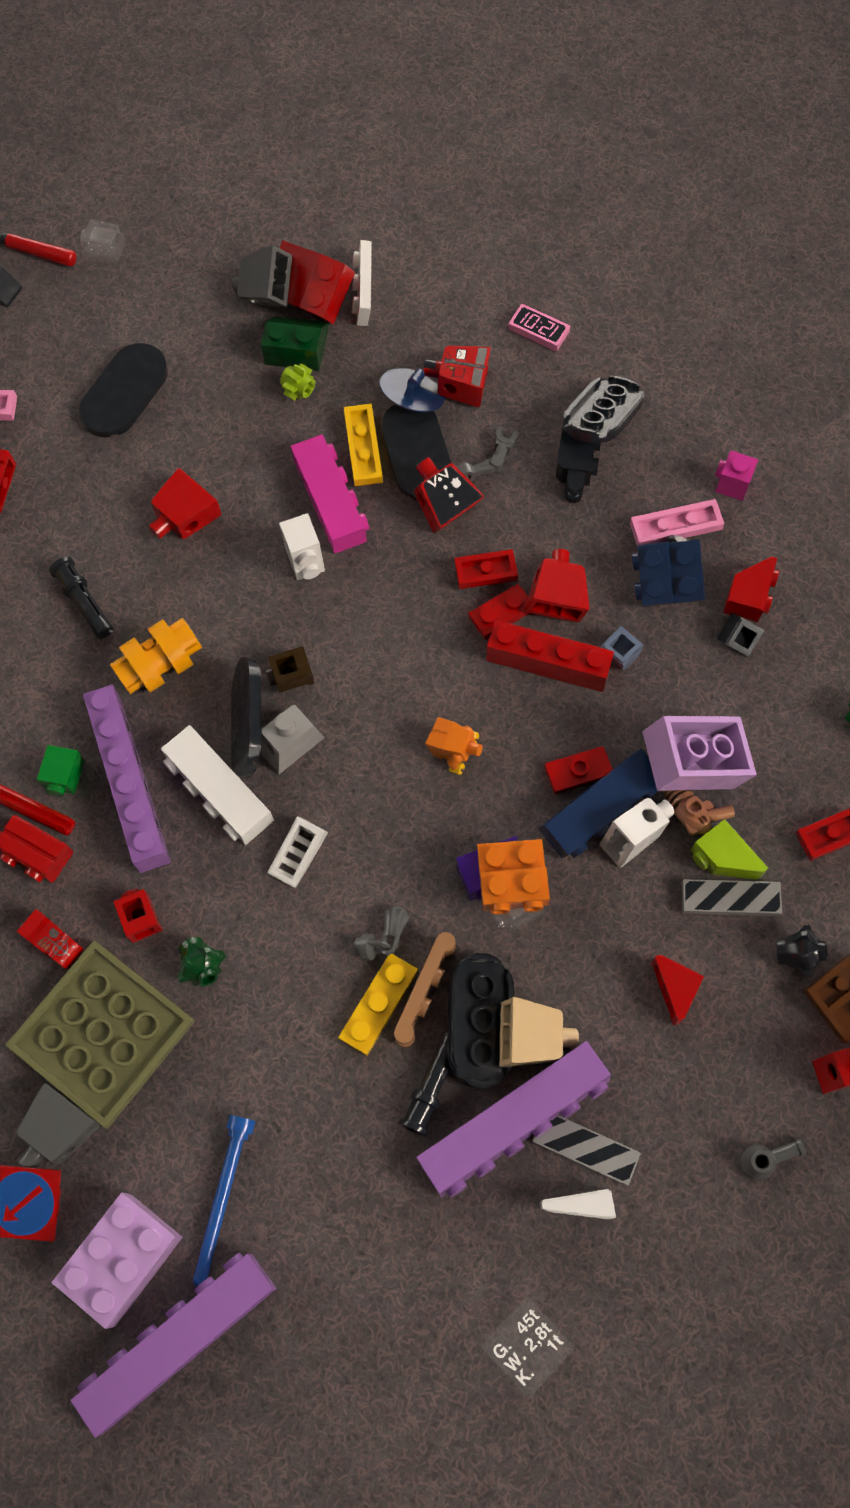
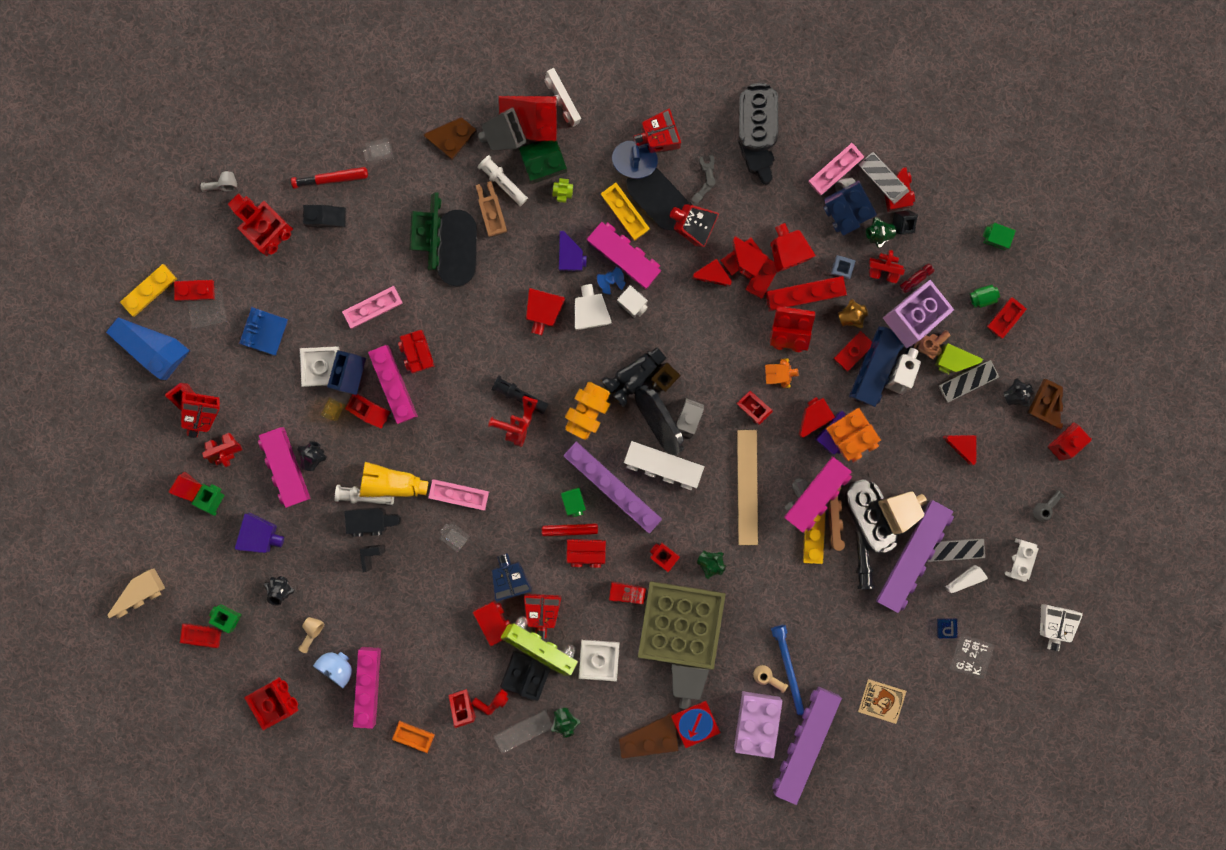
camera: 30 degrees left, 20 degrees up
(48, 644) = (515, 432): none -> red piece
(95, 347) = (424, 231): none -> dark green bracket
(181, 1195) = (771, 680): none -> tan bar
(193, 367) = (491, 211): none -> medium nougat hinge
(201, 268) = (451, 136): none -> reddish brown wing
(227, 330) = (496, 174): none -> white pin
(242, 538) = (590, 310): none -> white torso
(246, 642) = (634, 375): none -> black piece
(257, 460) = (570, 255): none -> dark purple slope
(284, 511) = (609, 278): none -> blue piece
(298, 825) = (734, 469): white slope -> none
(317, 883) = (747, 487): none -> tan tile
(340, 1340) = (882, 701): none -> tan sticker
(392, 776) = (754, 408): none -> red slope
(411, 934) = (817, 494): none -> dark pink brick
(432, 570) = (713, 273): none -> red slope
(471, 826) = (815, 416): none -> red slope
(493, 568) = (748, 258): none -> red slope
(503, 689) = (792, 329): none -> red plate
(509, 1271) = (947, 628): none -> clear blue tile
(539, 327) = (686, 72): tile -> none
(603, 716) = (853, 314): none -> pearl gold rock
(688, 1221) = (1023, 560): none -> white window
(694, 687) = (894, 270): none -> red hips
(698, 627) = (880, 232): none -> dark green rock
(699, 1370) = (1058, 625): none -> white torso
(735, 475) = (856, 120): dark pink brick -> none
(738, 557) = (883, 177): none -> light grey tile
(744, 711) = (918, 277): none -> dark red axle
(812, 787) = (985, 296): none -> green brick

